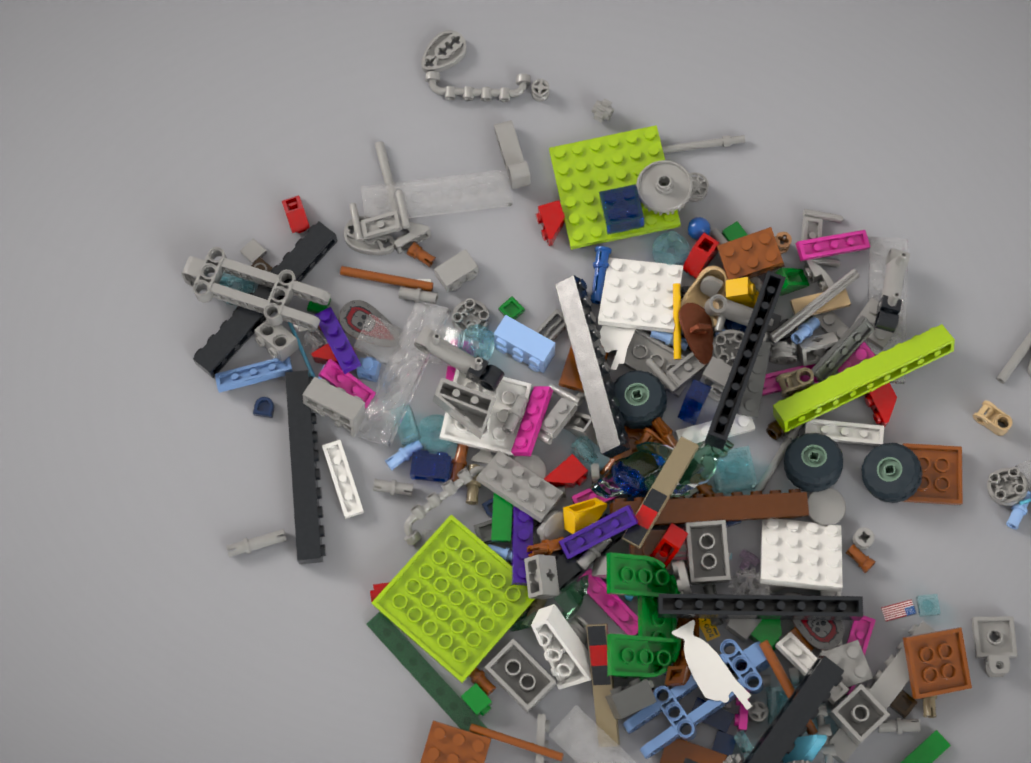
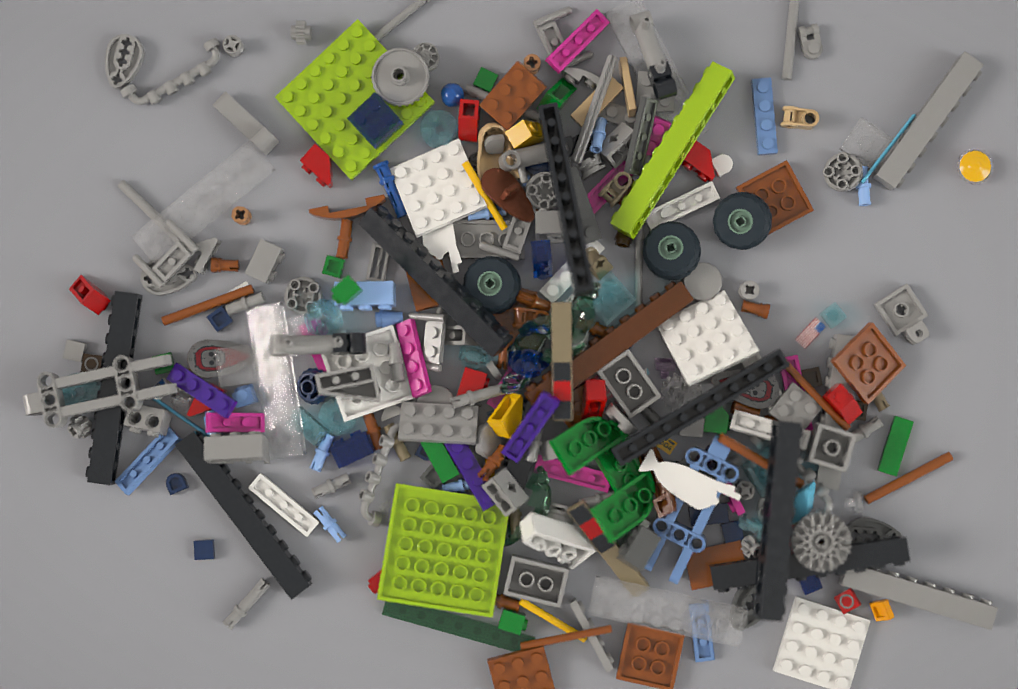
camera: 30 degrees left, 15 degrees up
(216, 312) = (79, 426): none -> light grey gear
(250, 476) = (204, 549): none -> dark blue tile
(371, 519) = (330, 524): none -> light blue pin
(389, 296) = (220, 319): none -> dark blue tile
(425, 395) = (308, 388): none -> dark blue piece
(461, 229) = (247, 215): none -> medium nougat bush
(511, 325) = (345, 291): none -> green brick
(512, 718) = (548, 617): none -> yellow bar
(530, 376) = (387, 318): none -> medium blue cone
(535, 291) = (344, 239): none -> dark orange pin
(553, 274) = (325, 213): none -> dark orange slope
(567, 482) = (476, 396): none -> light grey pin
(741, 433) = (599, 264): none -> dark tan piece
(854, 305) = (628, 88): none -> tan tile
(872, 663) = (817, 397): none -> dark orange axle
(877, 649) = (813, 376): none -> dark brown tile
(893, 683) = (843, 402): none -> red slope
(901, 419) = (722, 164): none -> white tile
(962, 400) = (764, 116): none -> medium blue plate

